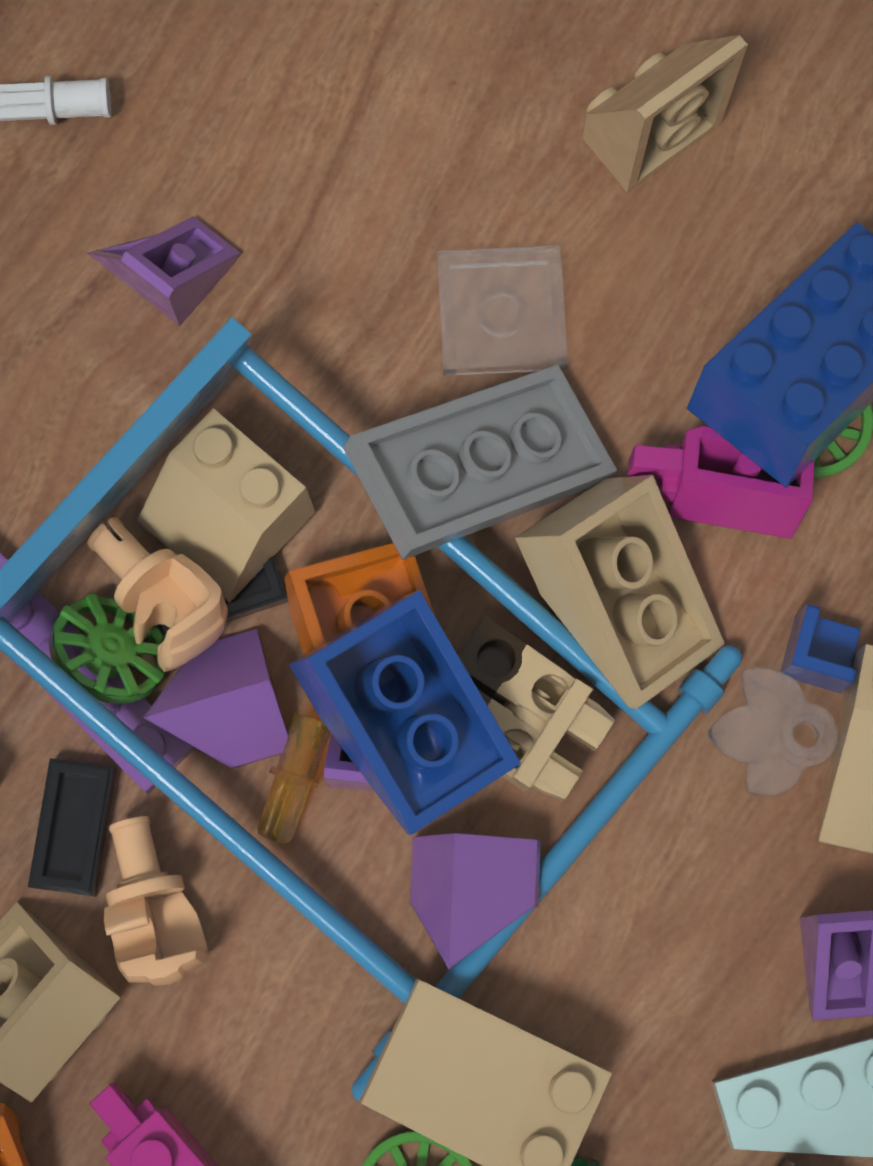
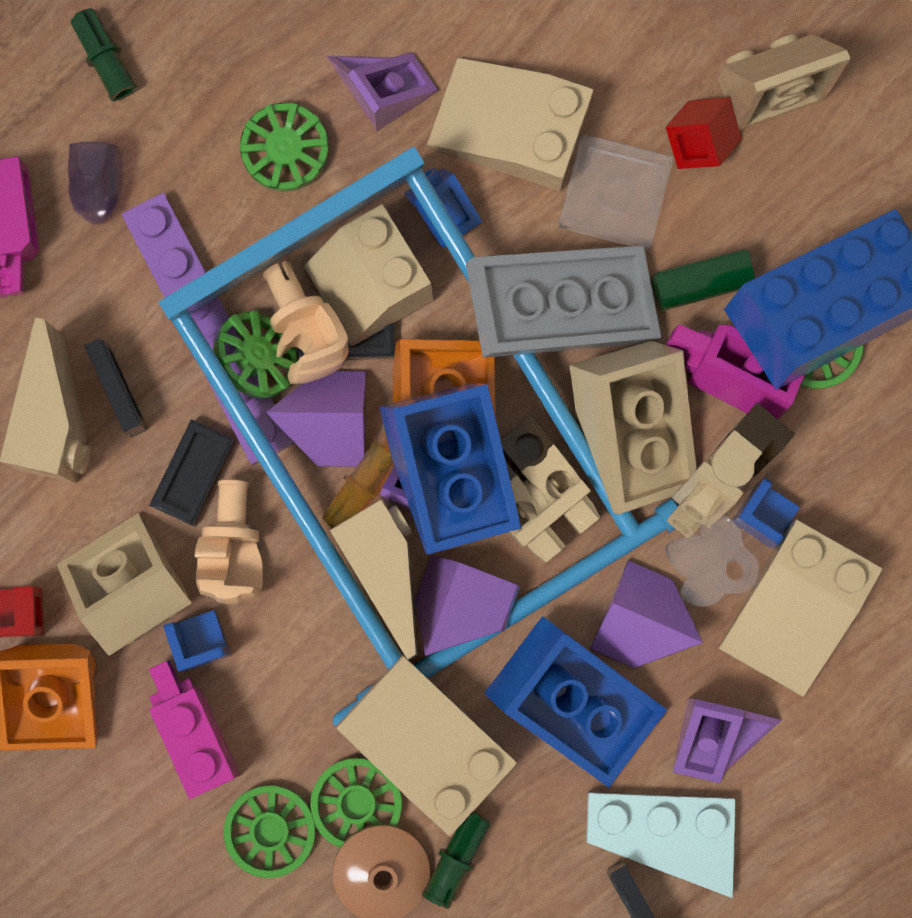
camera: 20 degrees right, 5 degrees up
(67, 379) = (284, 146): none -> bright green wheel
(142, 1046) = (197, 641): none -> blue panel
(305, 378) = (454, 200): none -> blue bracket
(345, 261) = (511, 120): none -> tan slope
(349, 859) = (382, 561): none -> tan slope
(587, 205) = (703, 133): none -> red panel
(645, 383) = (702, 280): none -> dark green brick
(658, 968) = (574, 702): none -> blue slope
(713, 834) = (644, 619): none -> medium lavender slope
(758, 606) = (727, 470): none -> tan hips

